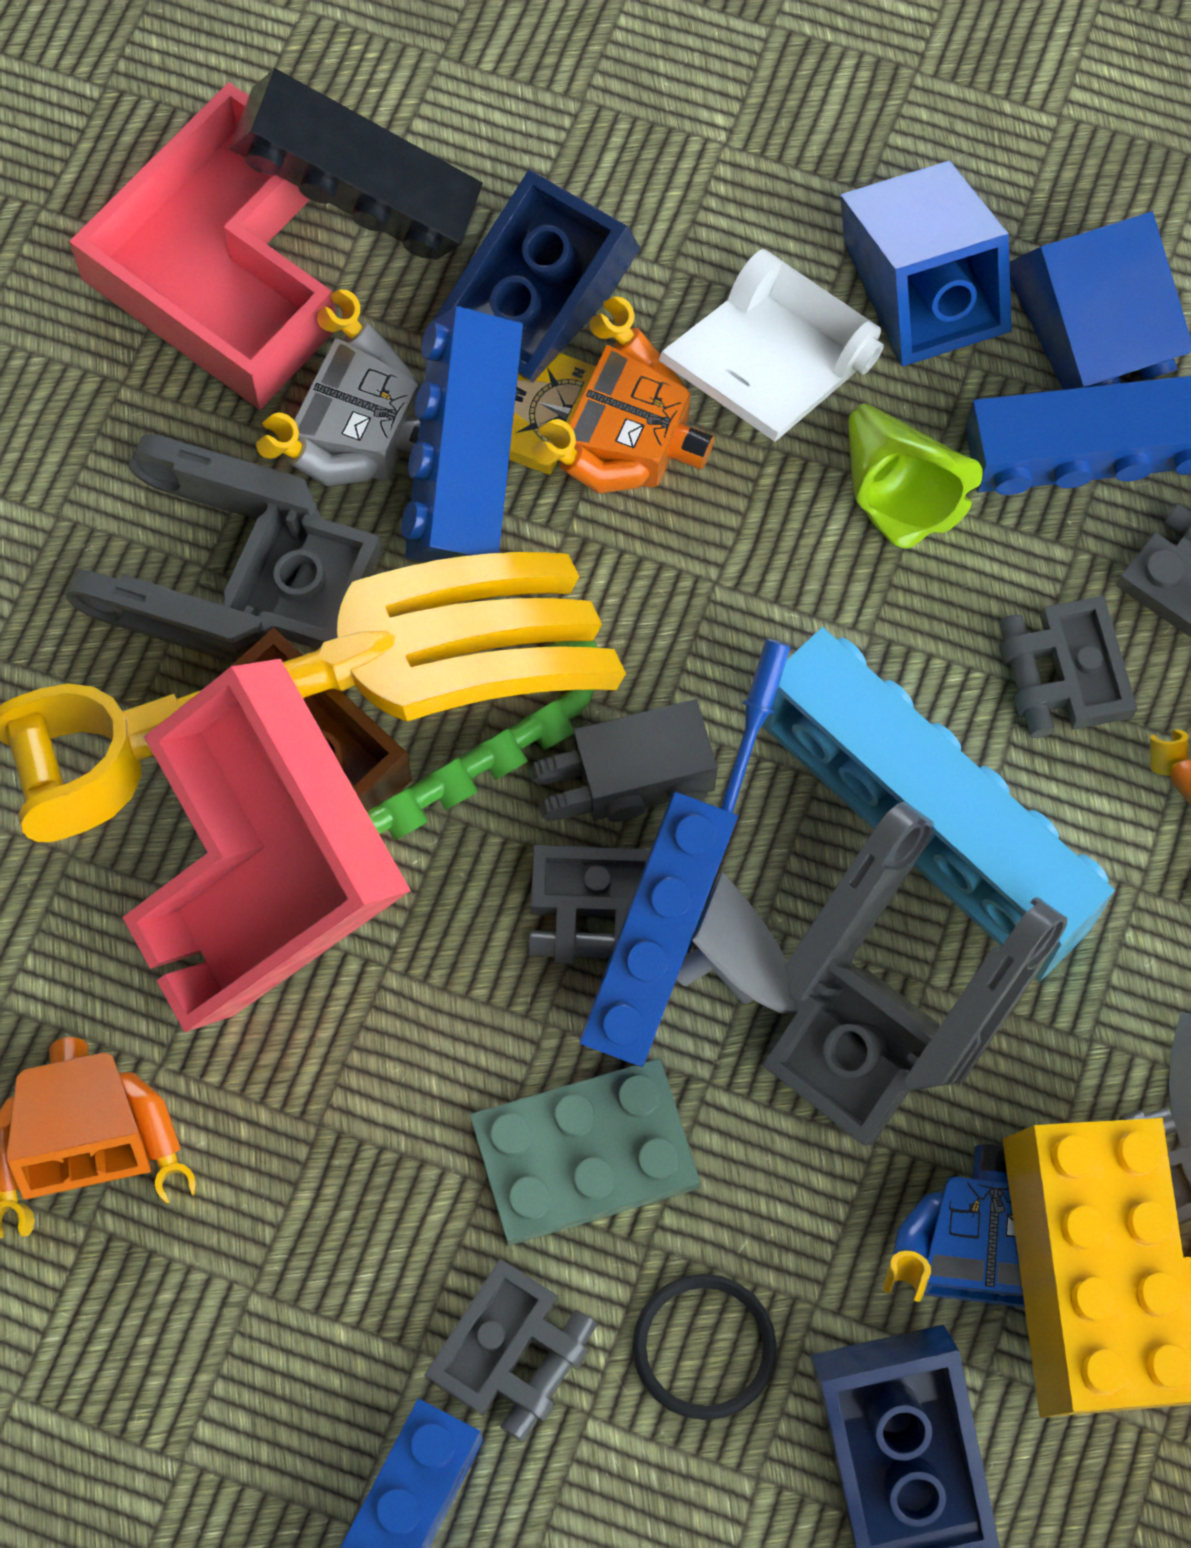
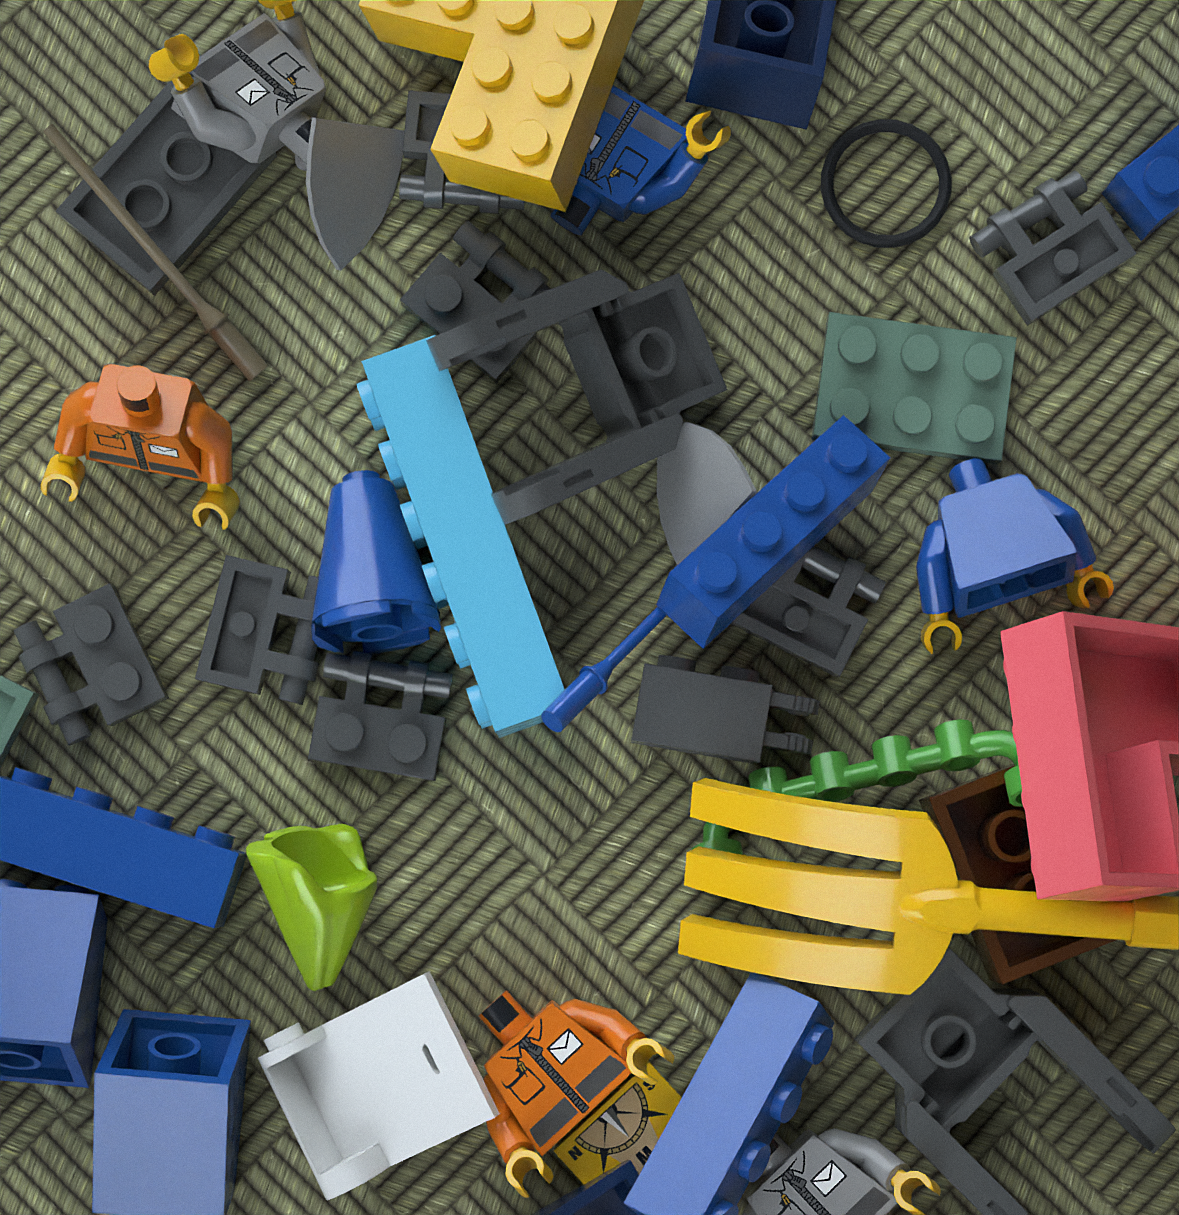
camera: 155 degrees left, 15 degrees up
(437, 1023) = (1000, 546): none -> torso
(923, 626) = (378, 736): none -> dark grey plate
(1007, 729) = (370, 572): none -> blue cone
(1050, 1032) = (451, 295): none -> dark grey plate

